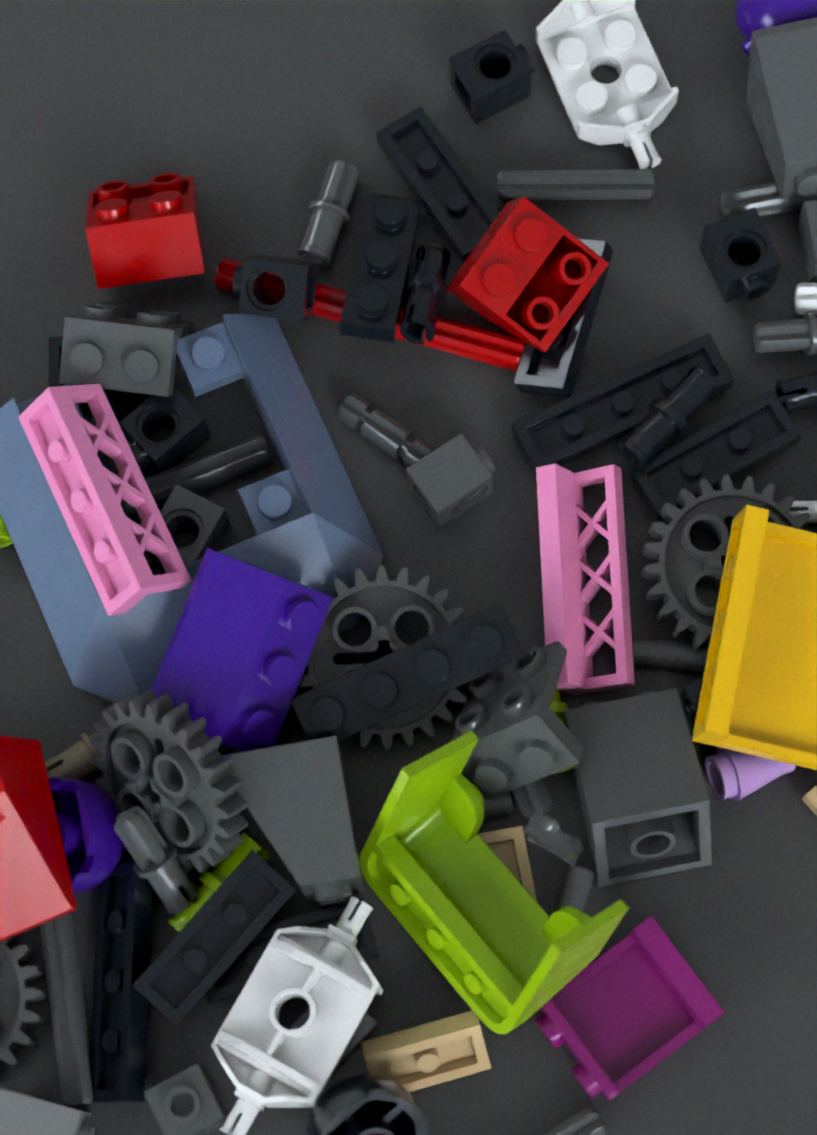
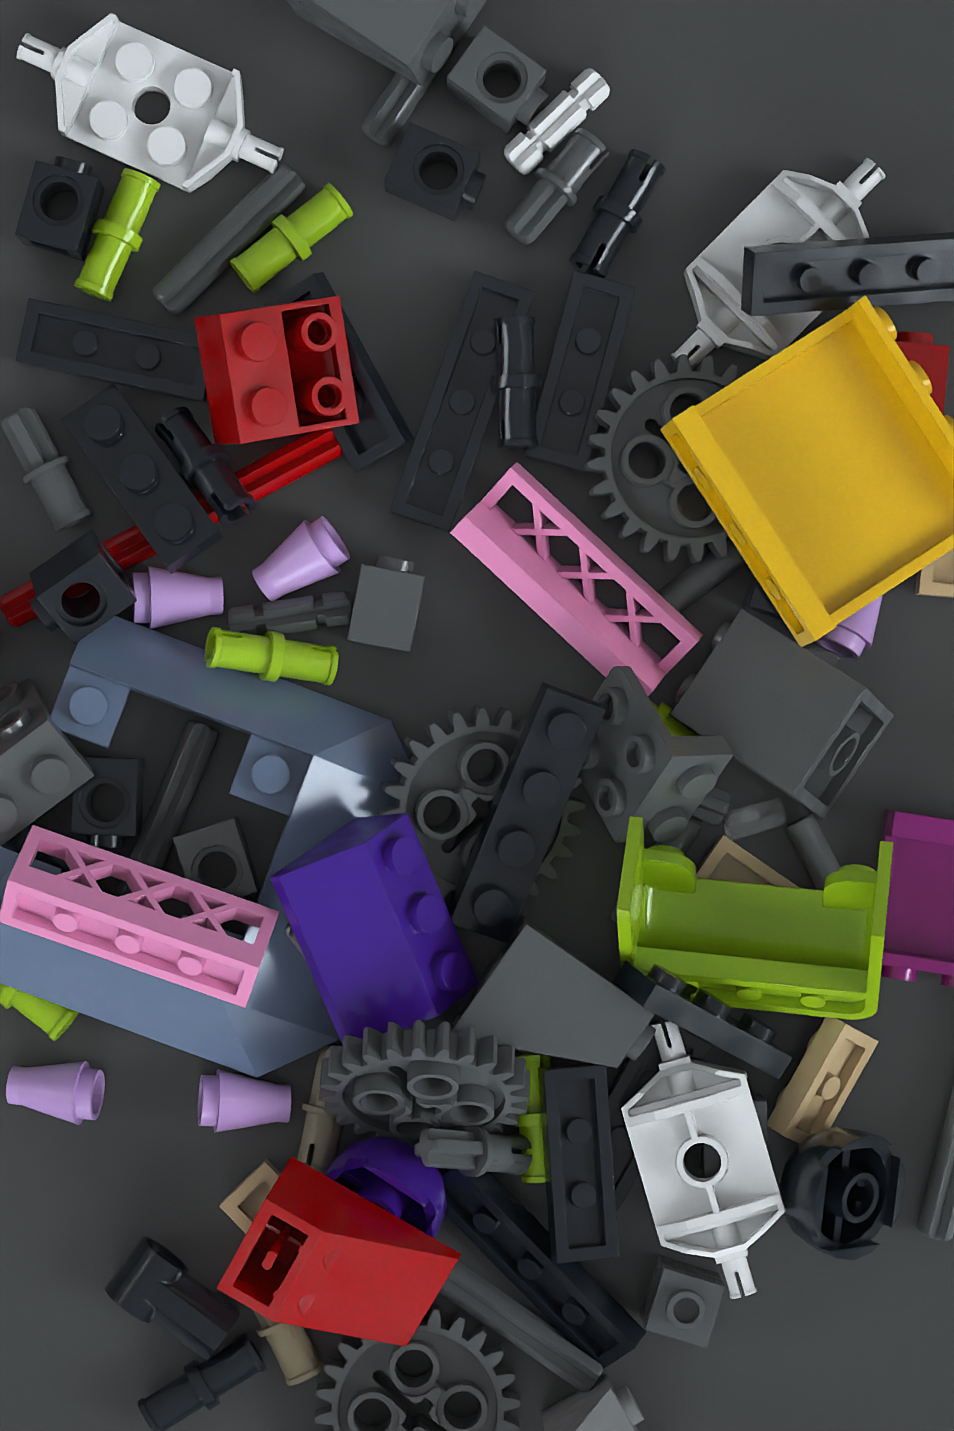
camera: 55 degrees left, 15 degrees up
(47, 692) = (241, 1101): none -> lavender cone
(326, 352) = (174, 597): none -> lavender cone
(349, 440) = (271, 656): none -> lime pin
(392, 922) = (703, 1016): none -> black plate
(428, 404) = (302, 559): none -> lavender cone
(510, 121) = (117, 234): none -> lime pin
(614, 216) = (291, 238): none -> lime pin

